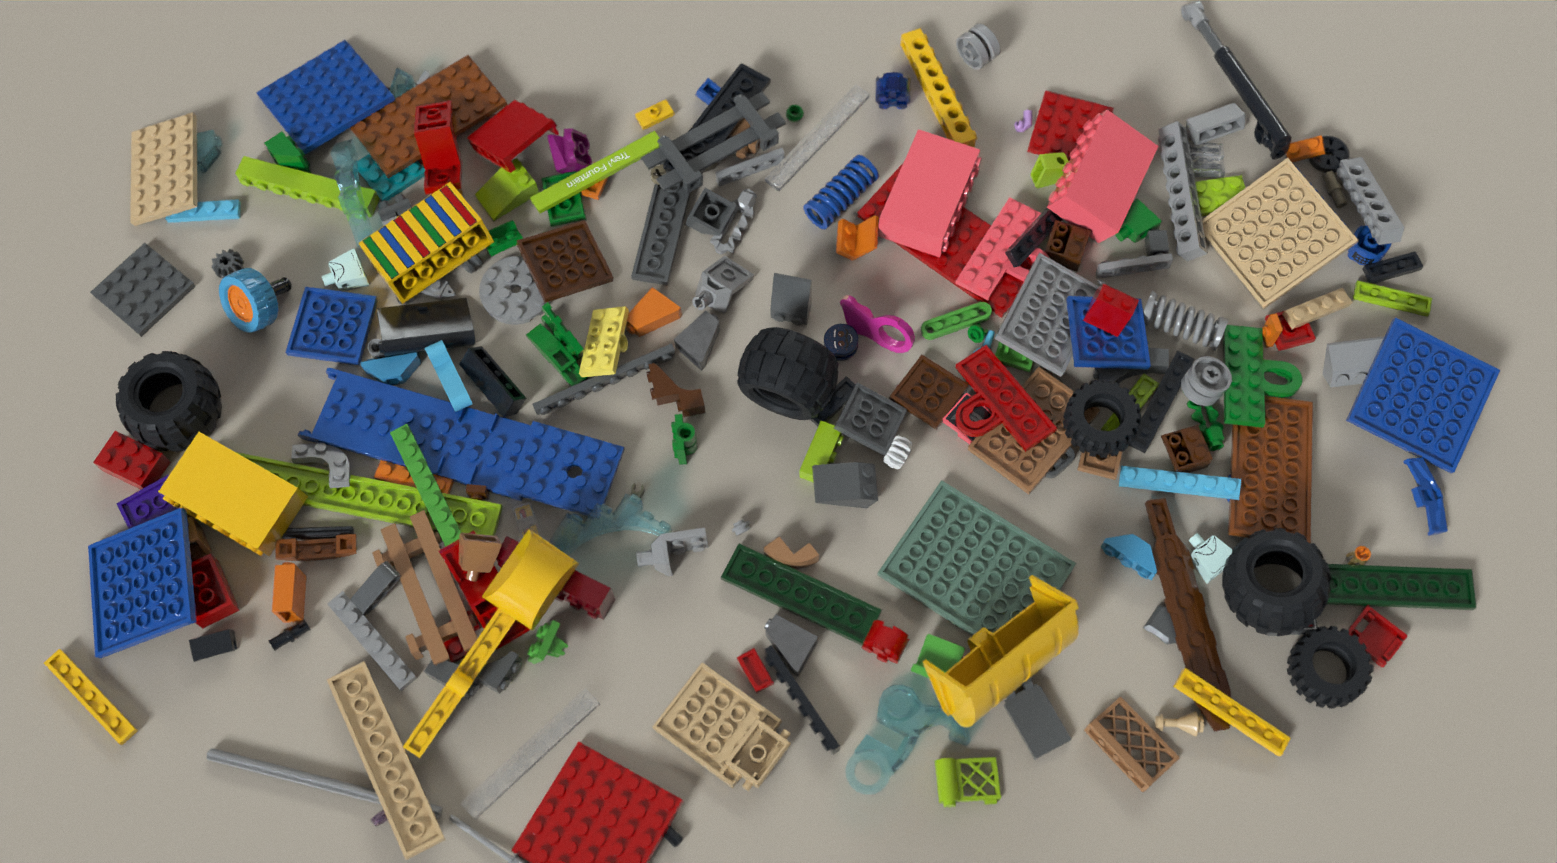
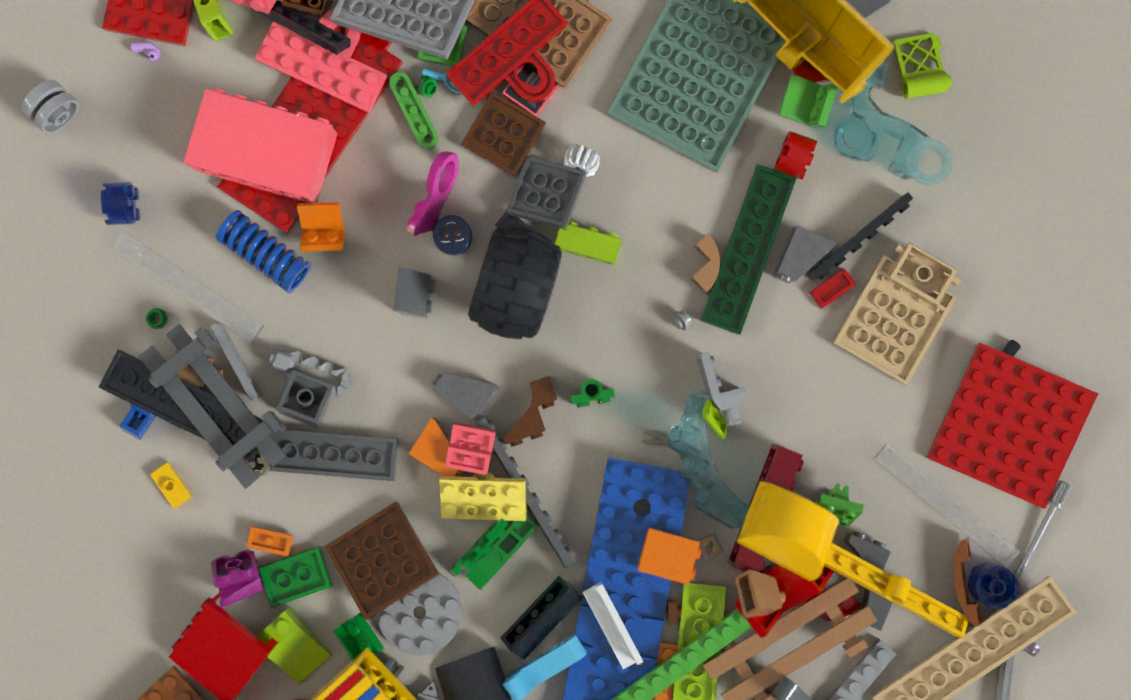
camera: 100 degrees left, 20 degrees up
(442, 775) = (997, 596): none -> clear blue brick
(453, 756) = (970, 609): none -> dark orange slope
(474, 436) = (612, 625): none -> white fence
(526, 482) = (669, 556): none -> orange brick
(595, 173) = (260, 540): lime tile -> none
(643, 542) = (714, 419): none -> lime tile
(649, 334) = (470, 448): none -> coral slope
(719, 284) = (395, 376): light grey plate -> none
(845, 484) = (626, 212): dark grey slope -> none
(937, 88) = (43, 178): yellow brick -> none

